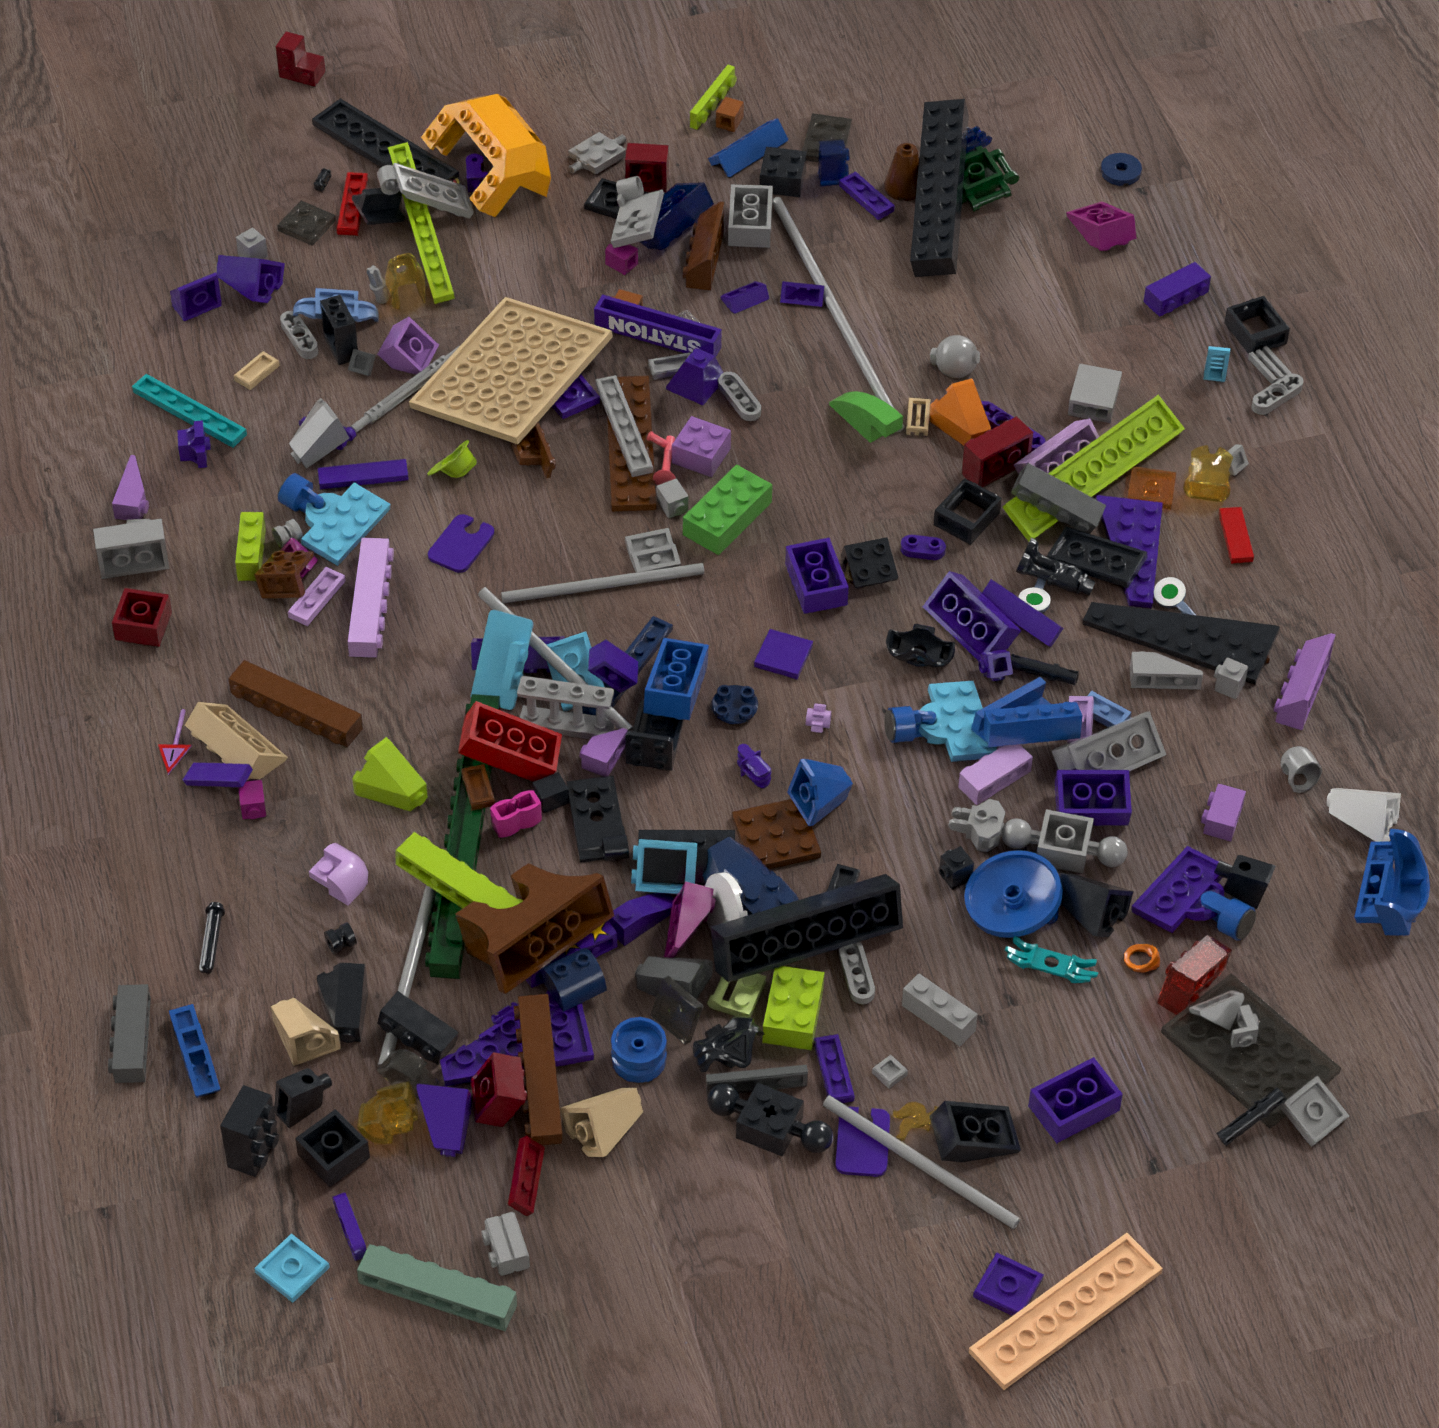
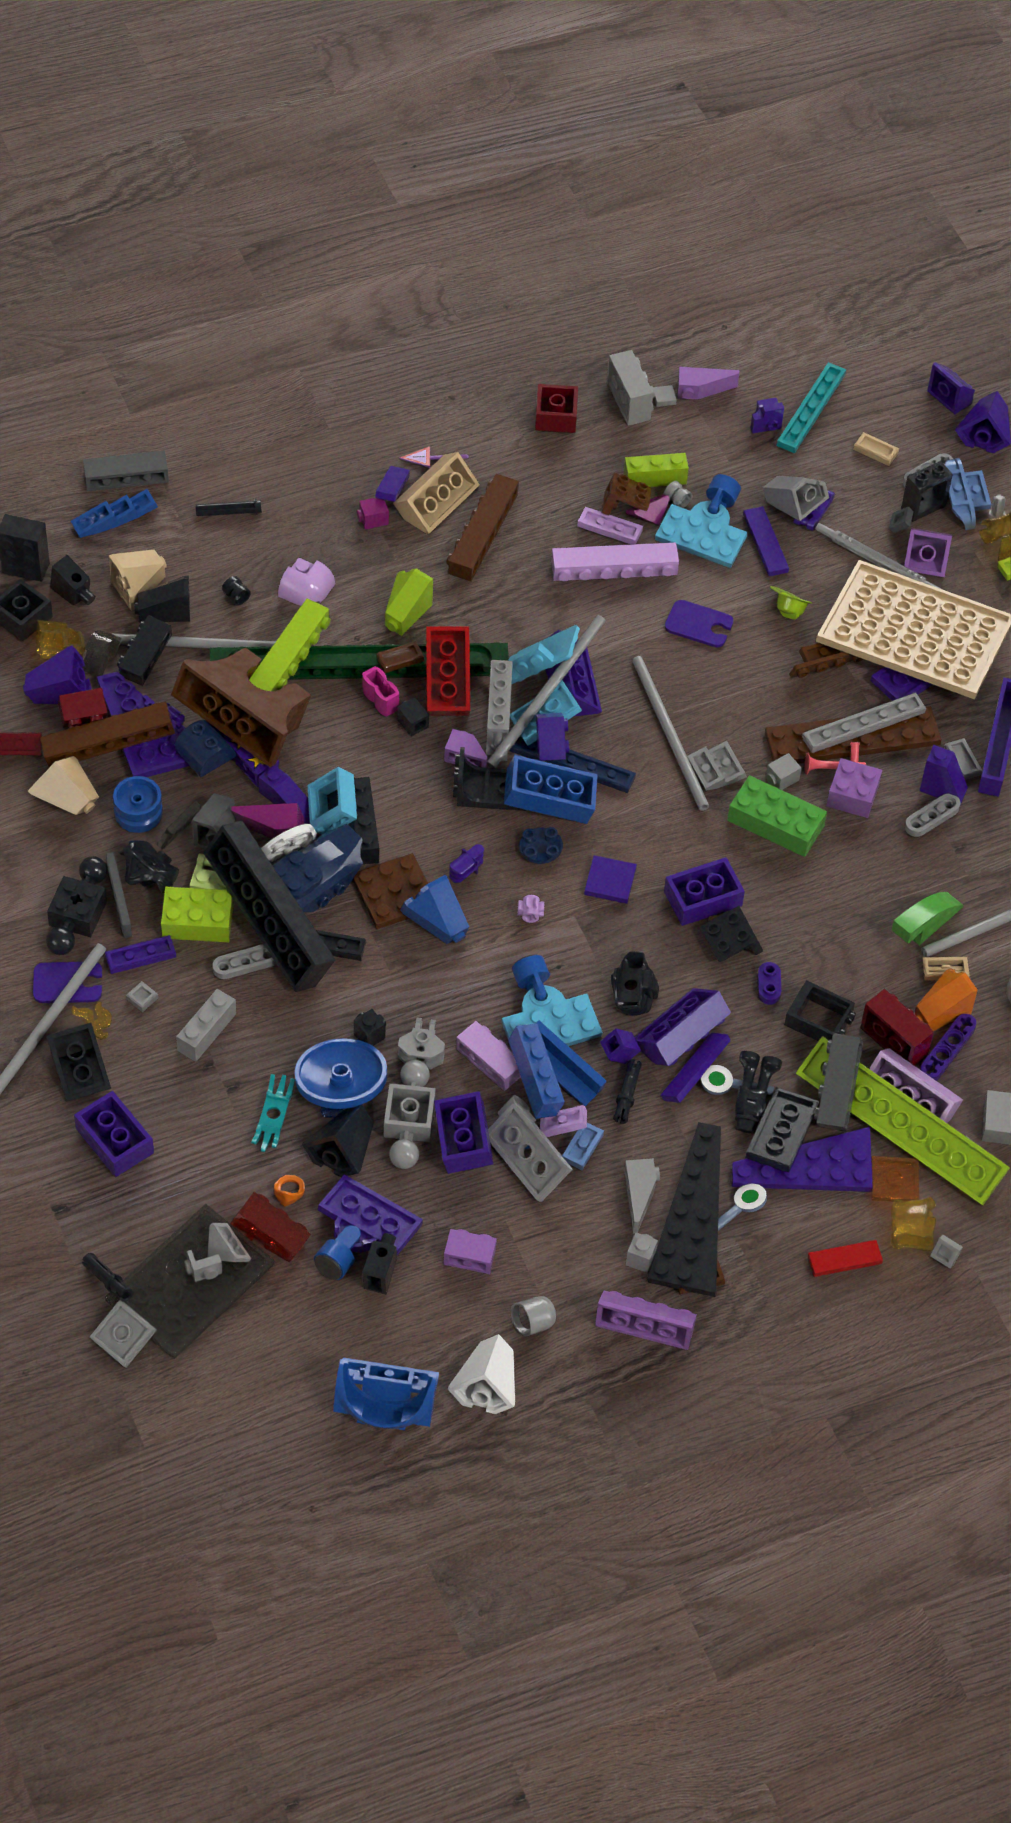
camera: 80 degrees right, 5 degrees up
(603, 838) = (372, 758): black hinge -> none

